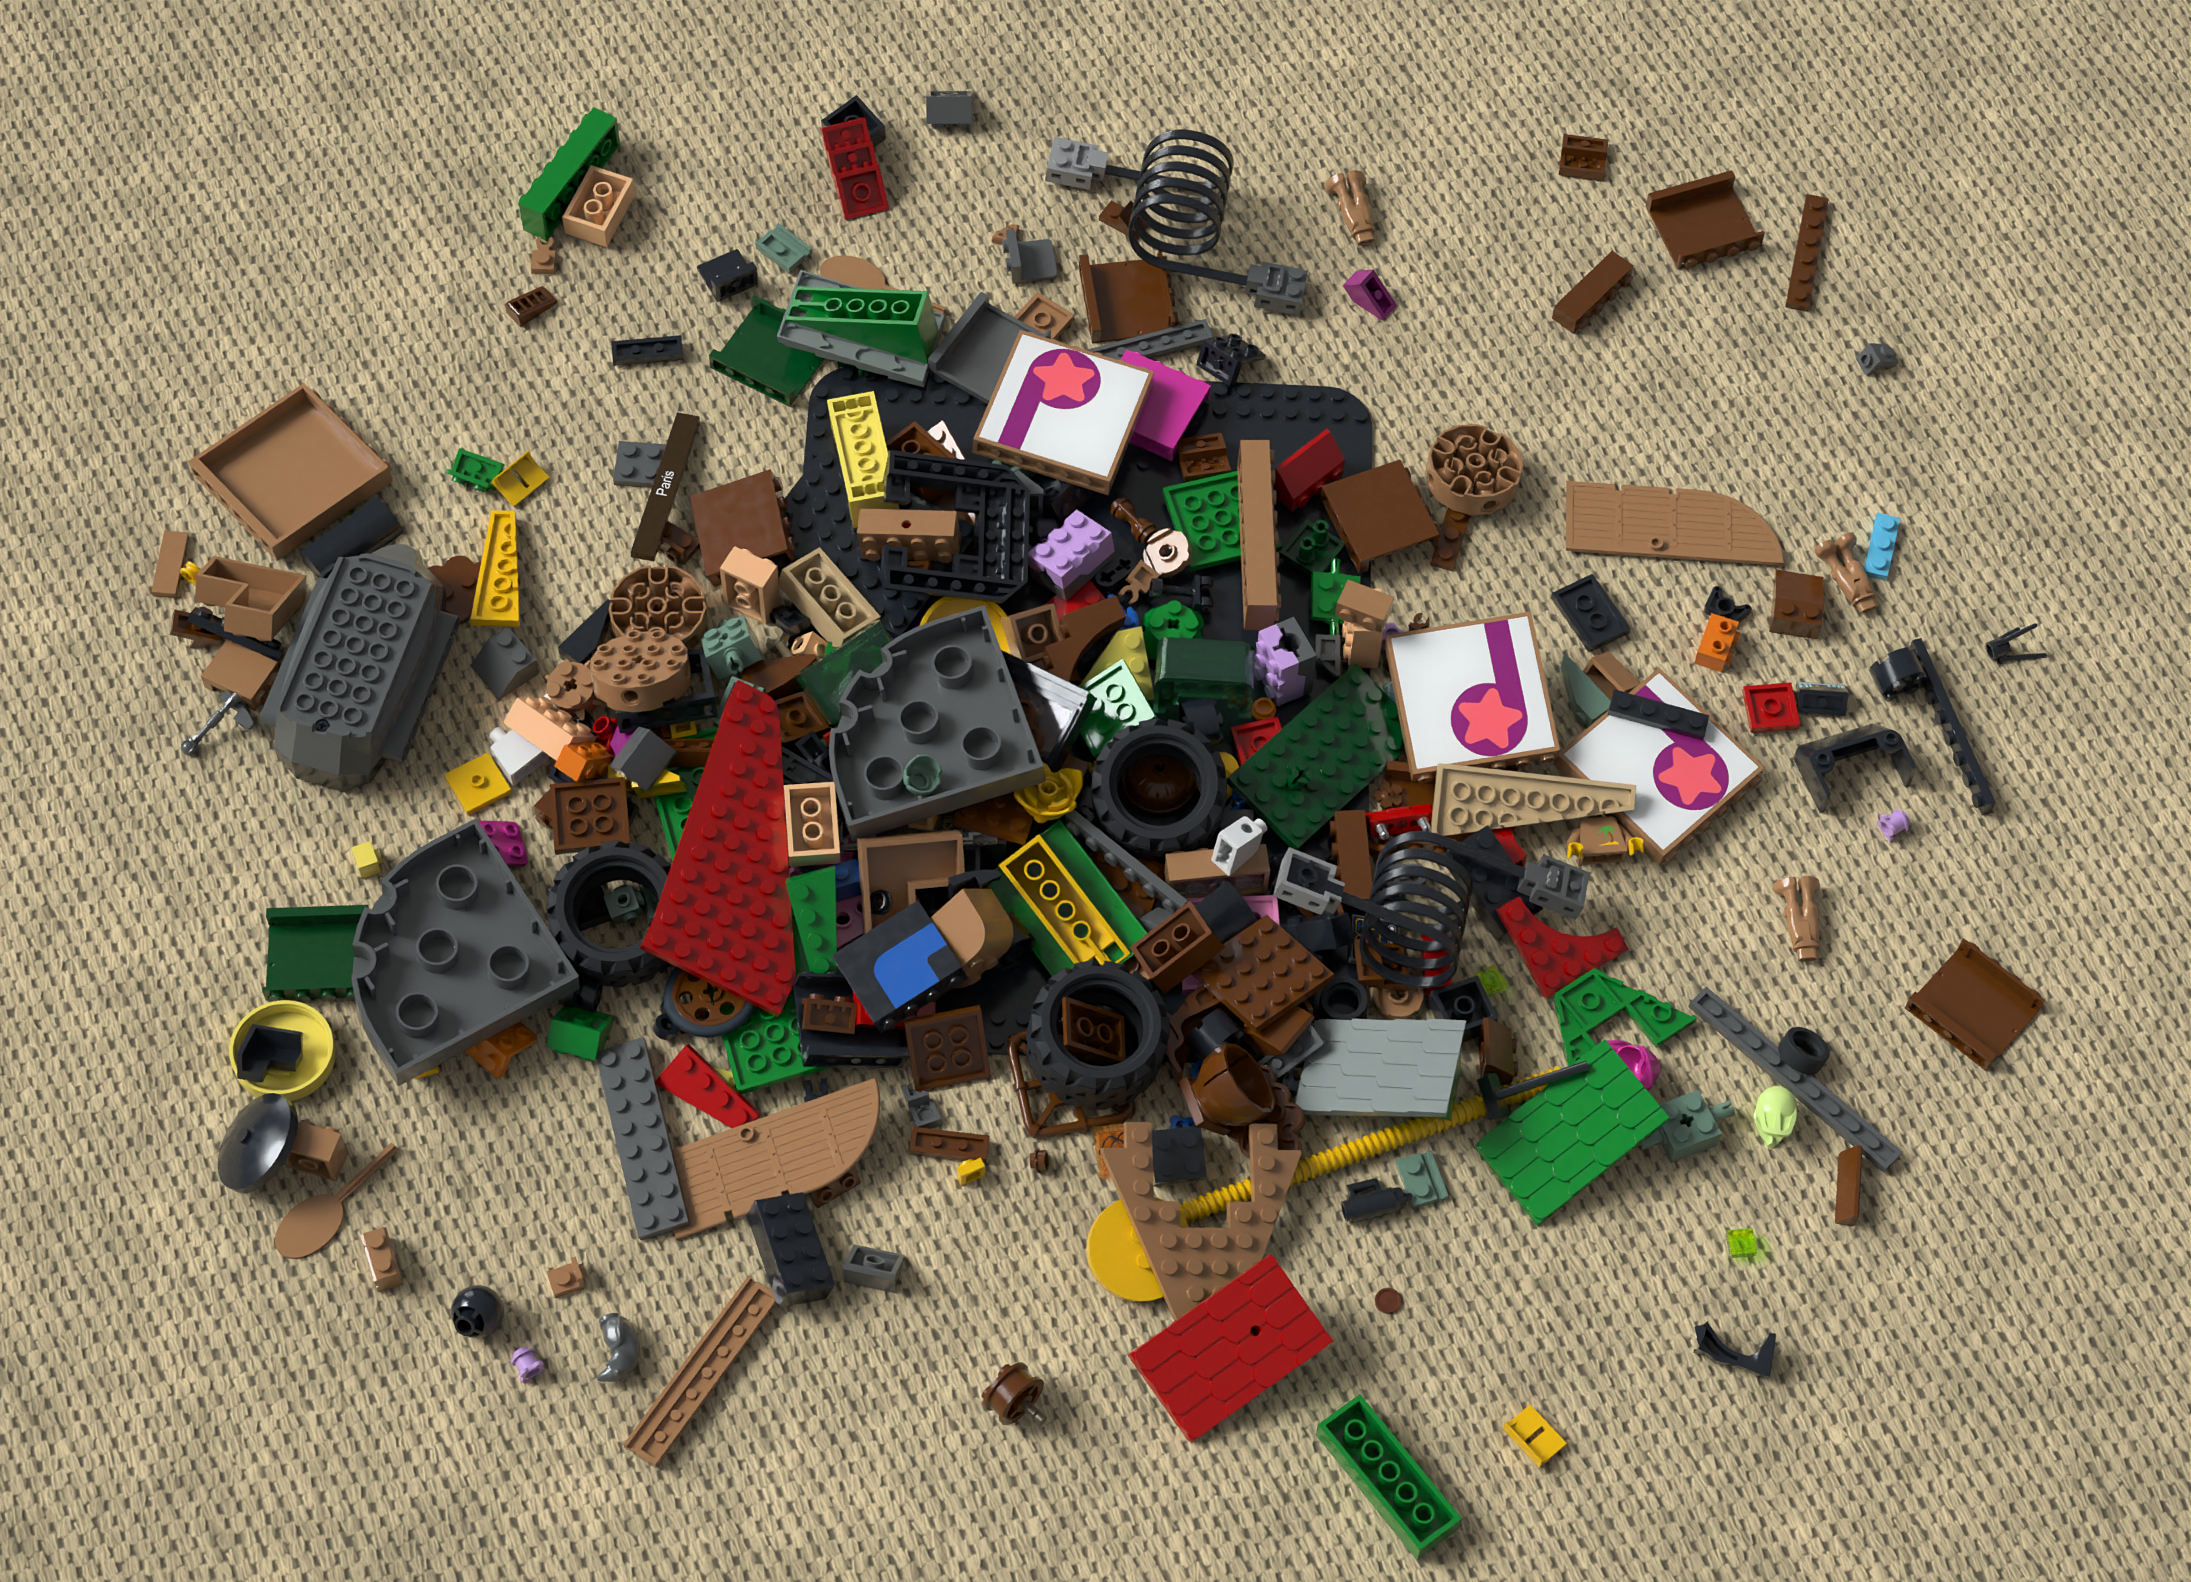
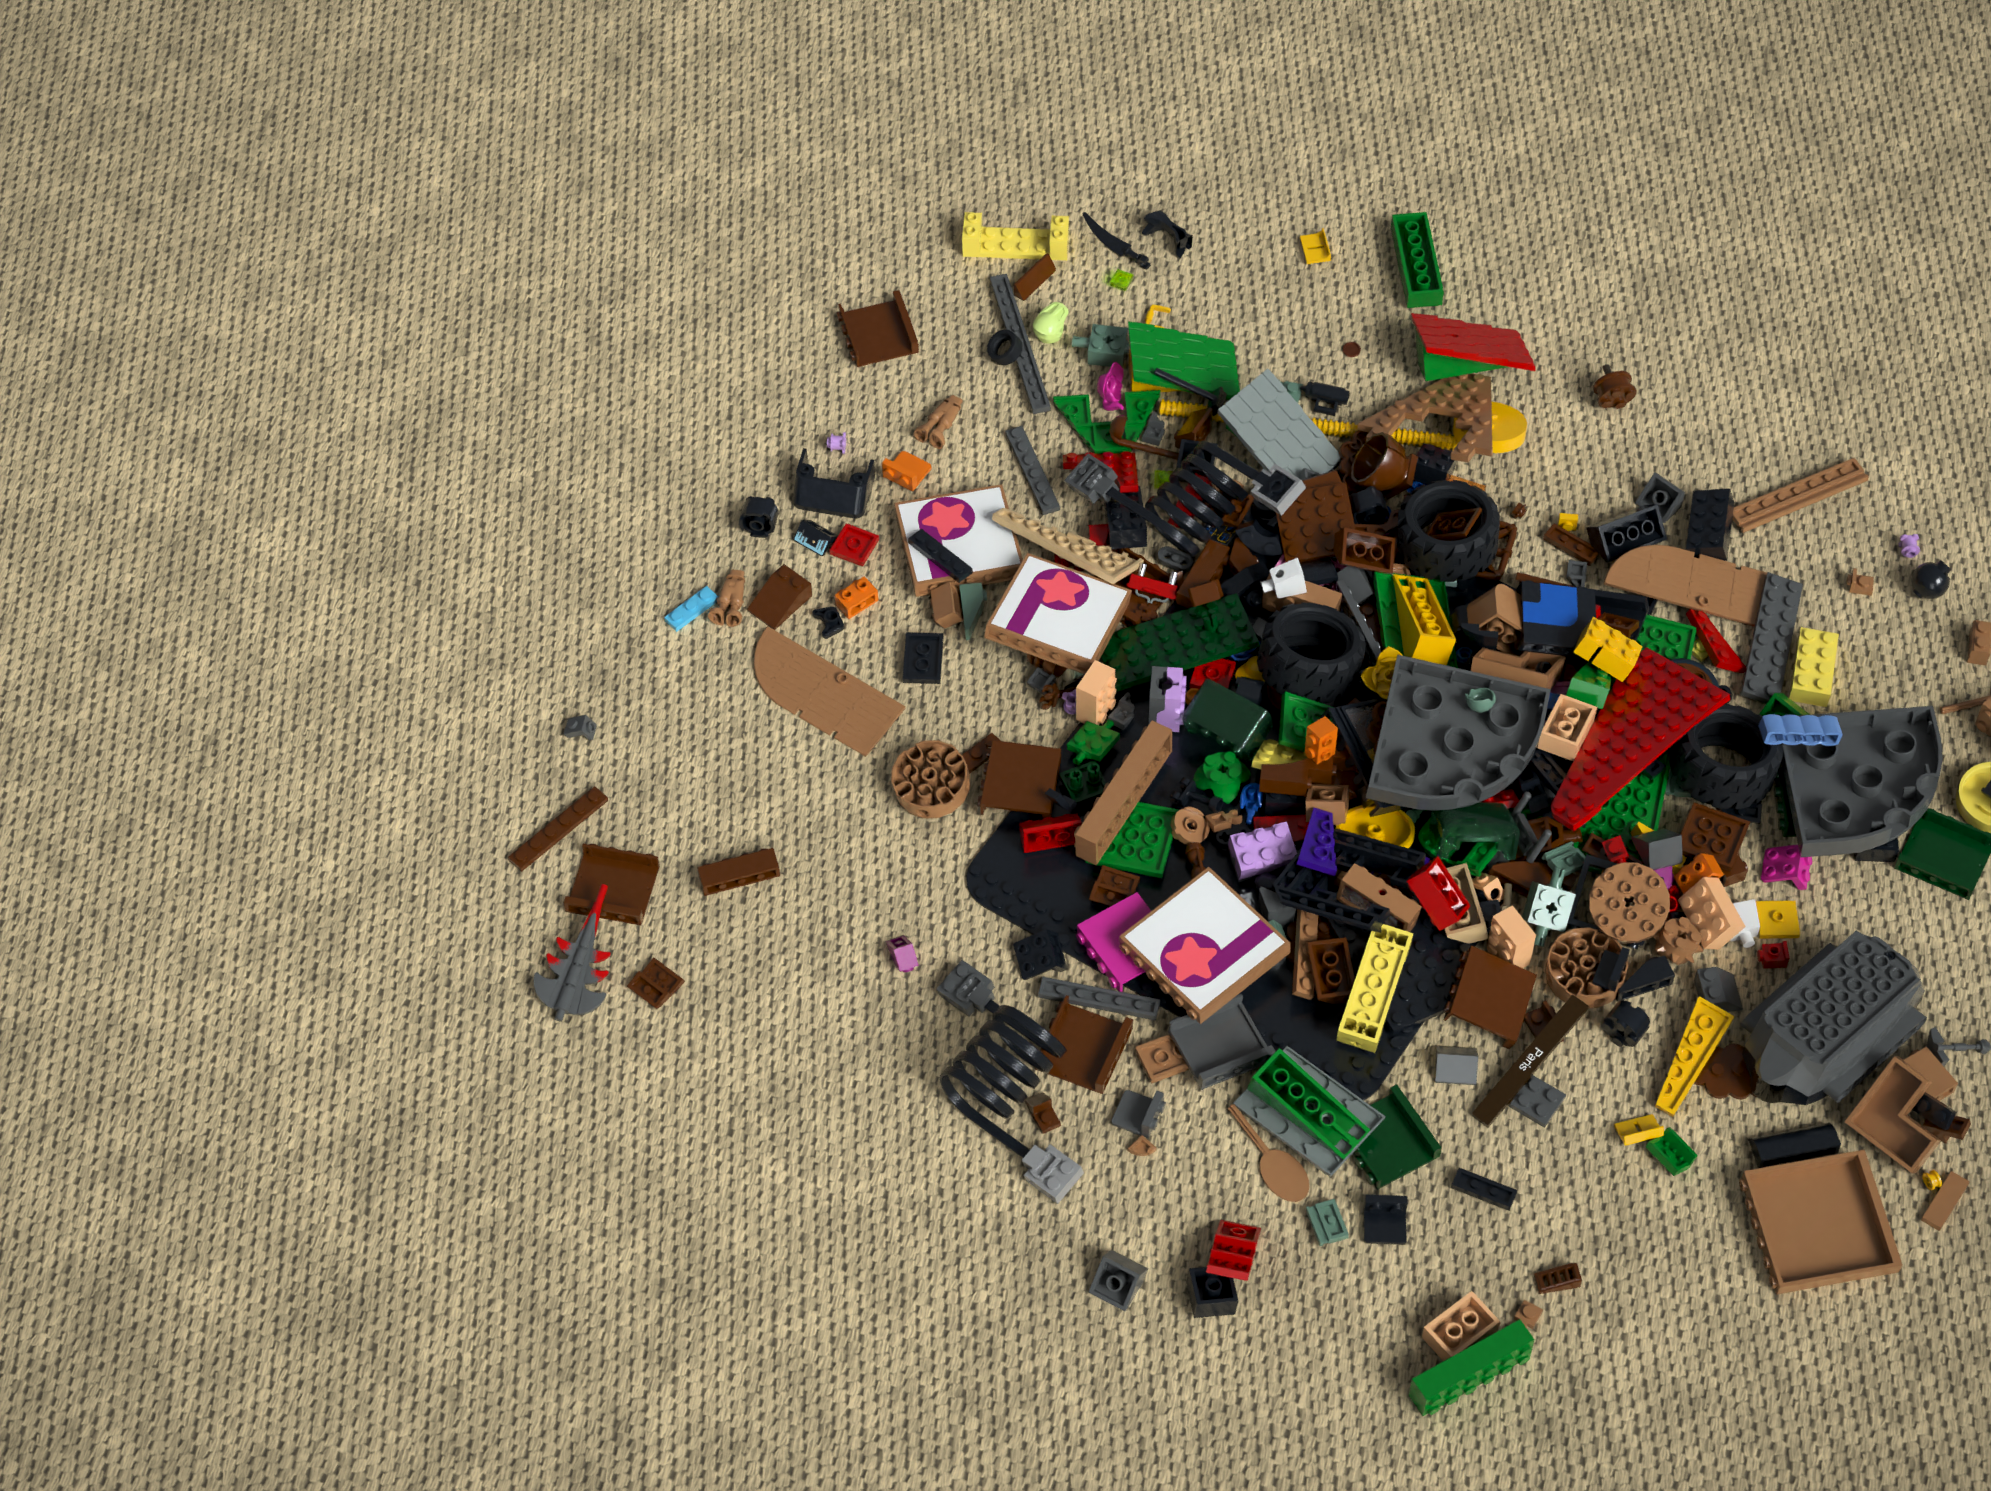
camera: 145 degrees left, 5 degrees down
(367, 859) = (1883, 899): light yellow plate -> none
(462, 734) = (1774, 955): none -> red brick
(538, 953) = (1796, 730): none -> medium blue brick
(573, 1118) = (1813, 667): none -> light yellow brick
(584, 568) = (1626, 1024): none -> black brick
(623, 1345) = (1843, 527): dark grey animal -> none
(626, 602) = (1611, 969): none -> black panel
(686, 740) = (1615, 850): none -> red bracket
(743, 458) = (1456, 1065): none -> slope
(790, 700) = (1528, 841): none -> dark grey plate
(815, 941) = (1617, 652): none -> yellow piece
(845, 558) = (1438, 894): none -> red slope
(889, 1186) = (1627, 531): none -> black slope
(1007, 554) = (1319, 844): none -> dark purple wing
(1073, 653) = (1321, 740): none -> orange brick
(1313, 501) = (1064, 802): none -> black slope
(1332, 821) = (1205, 592): none -> reddish brown slope
(1356, 210) = (862, 1021): medium nougat piece -> none
(1364, 606) = (1100, 671): medium nougat brick -> none
(1546, 1043) = (1154, 430): none -> dark grey slope
(1582, 990) = (1116, 431): none -> reddish brown piece
(1601, 841) = (1035, 511): medium nougat torso -> none
(1650, 914) = (1032, 470): none -> dark grey plate
(1662, 117) = (568, 992): none -> dark grey animal
(1668, 1209) = (1149, 316): none -> yellow piece
(1788, 828) = (906, 470): none -> orange bracket
(1791, 1301) = (1115, 244): none -> black sword
(1917, 1228) = (1015, 242): none -> light yellow plate
(1953, 732) = (754, 471): black plate -> none
(2000, 647) = (676, 509): black plant -> none

